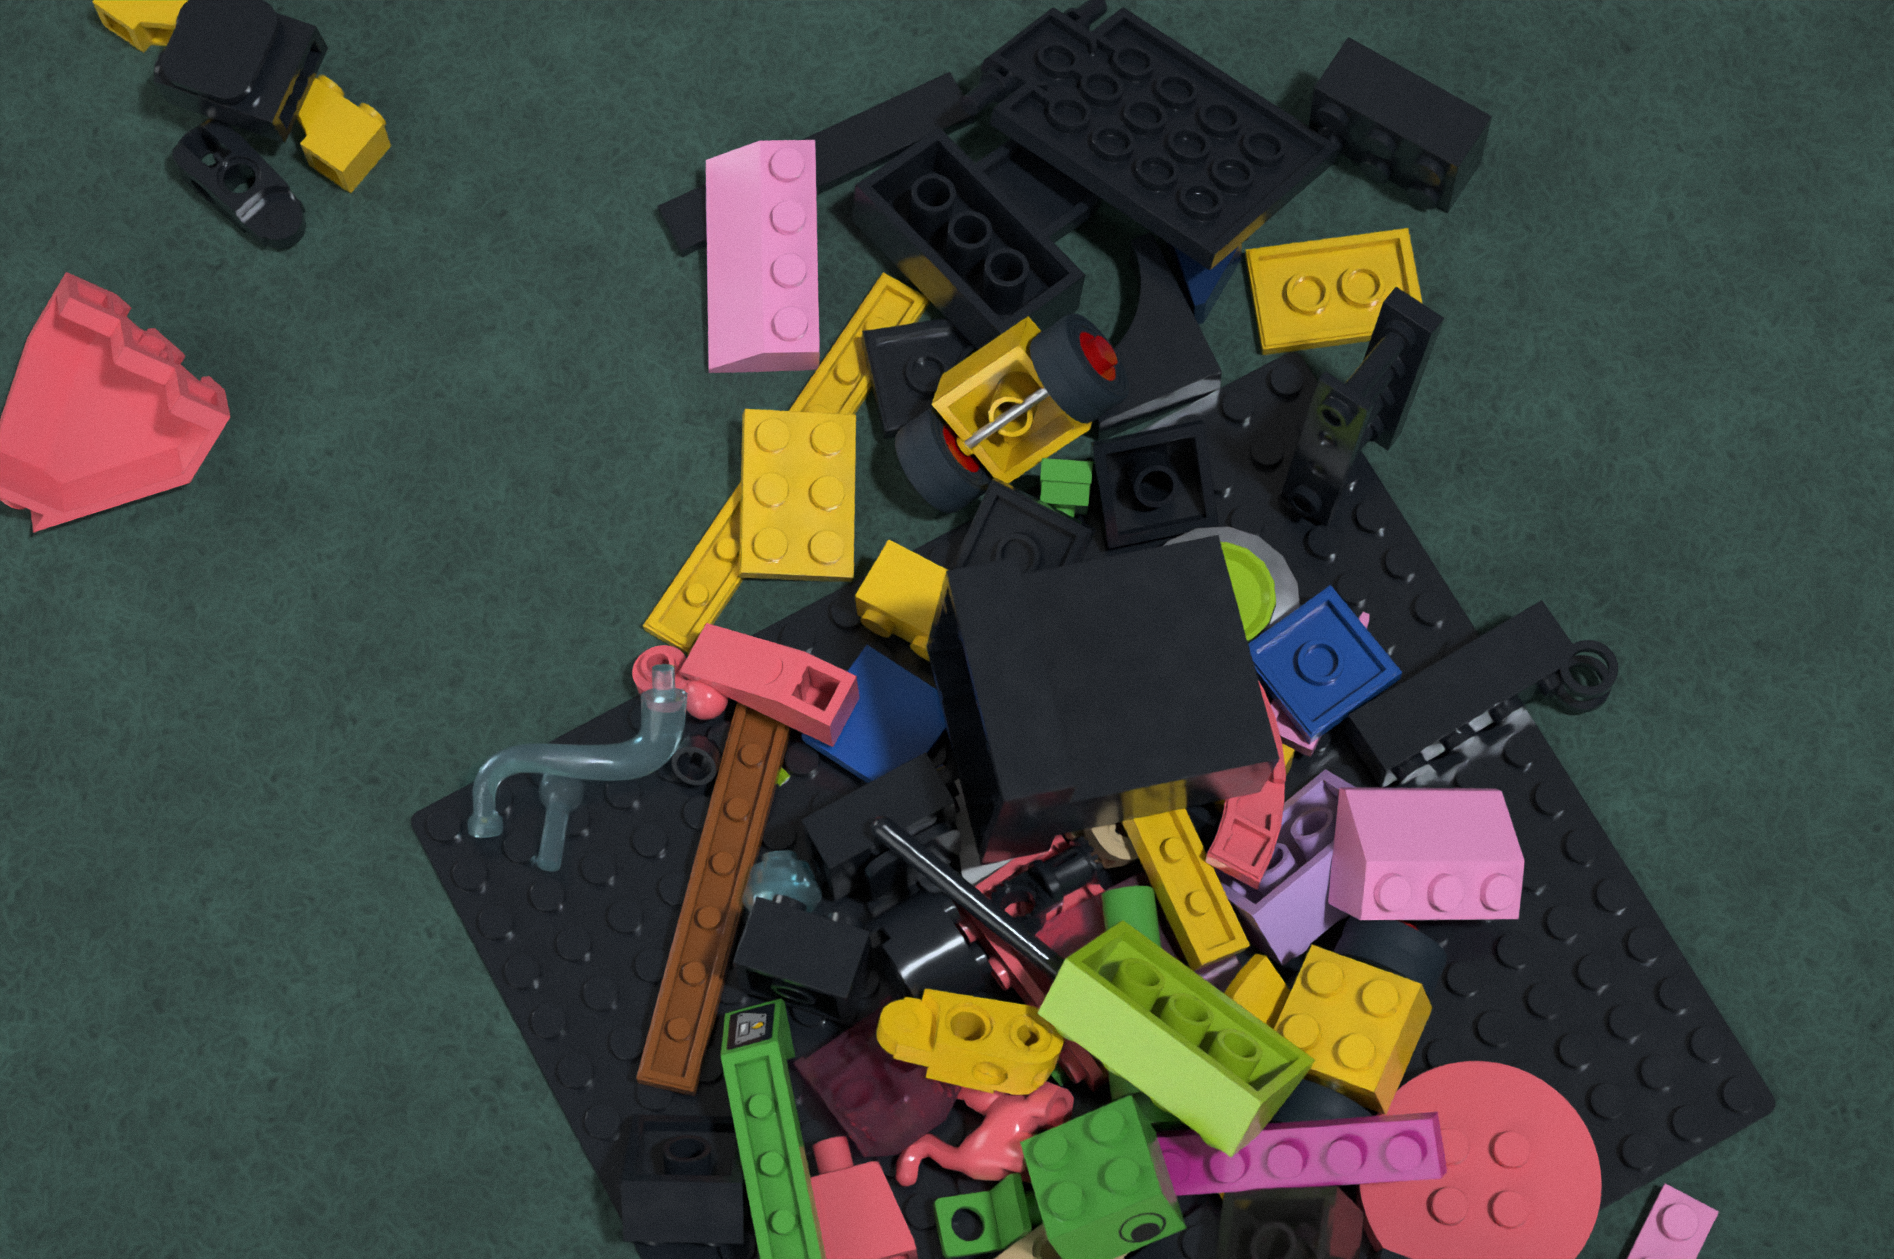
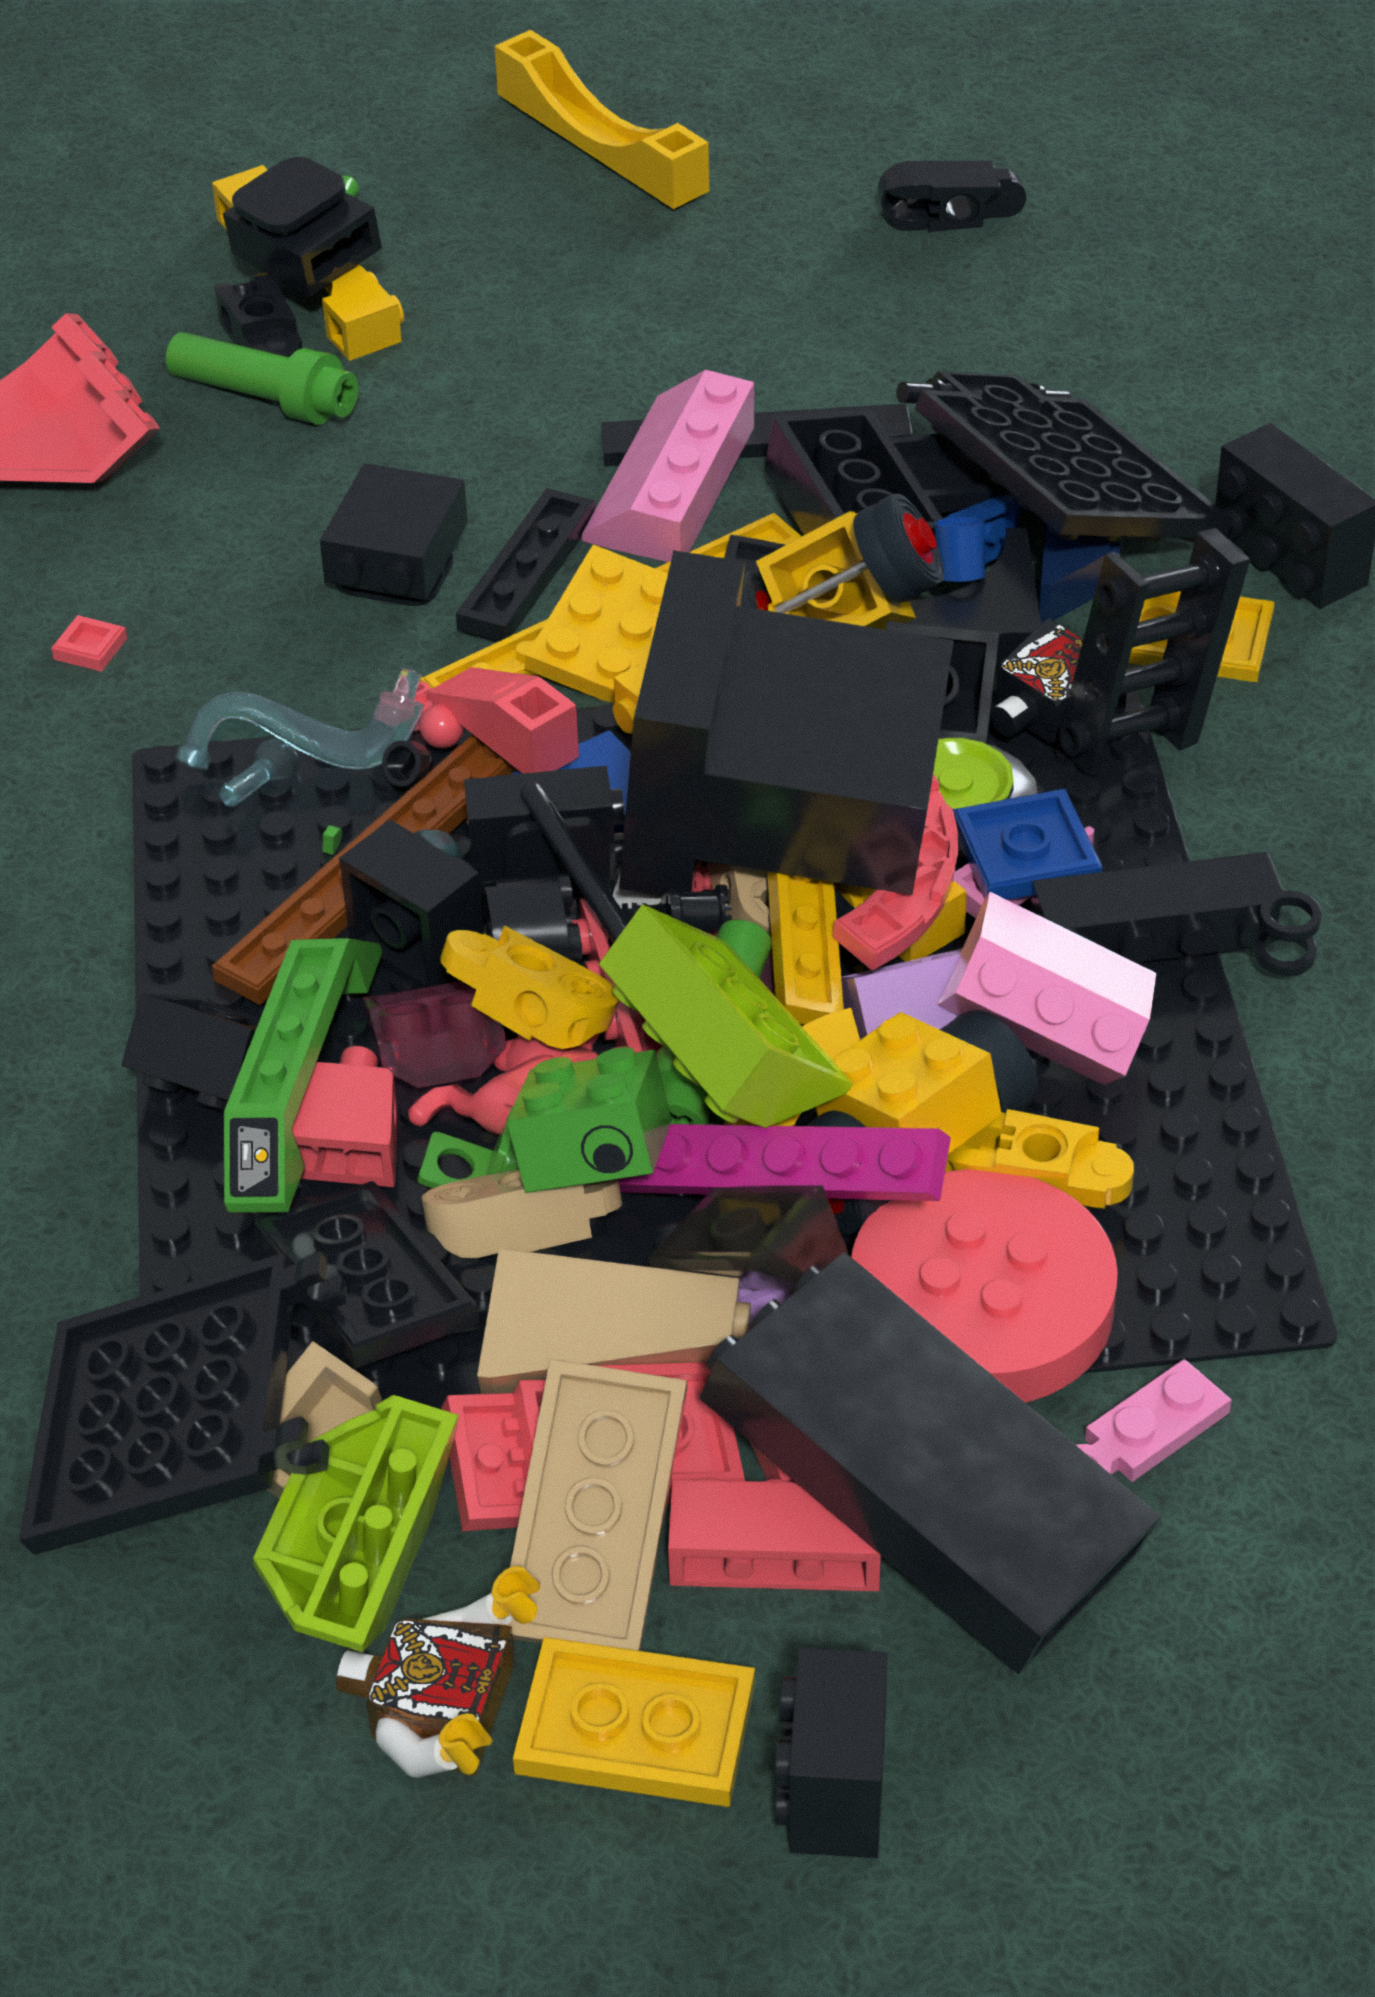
camera: 20 degrees right, 25 degrees down
(292, 692) = (89, 643): none -> coral tile
(341, 267) = (306, 383): none -> bright green piece
(536, 455) = (394, 535): none -> black brick
(666, 874) = (331, 839): none -> bright green piece
(675, 435) = (525, 565): none -> black plate
(1105, 281) = (975, 537): none -> blue plate
(1254, 437) = (1037, 683): none -> torso
(1517, 1025) = (1052, 1152): none -> yellow piece

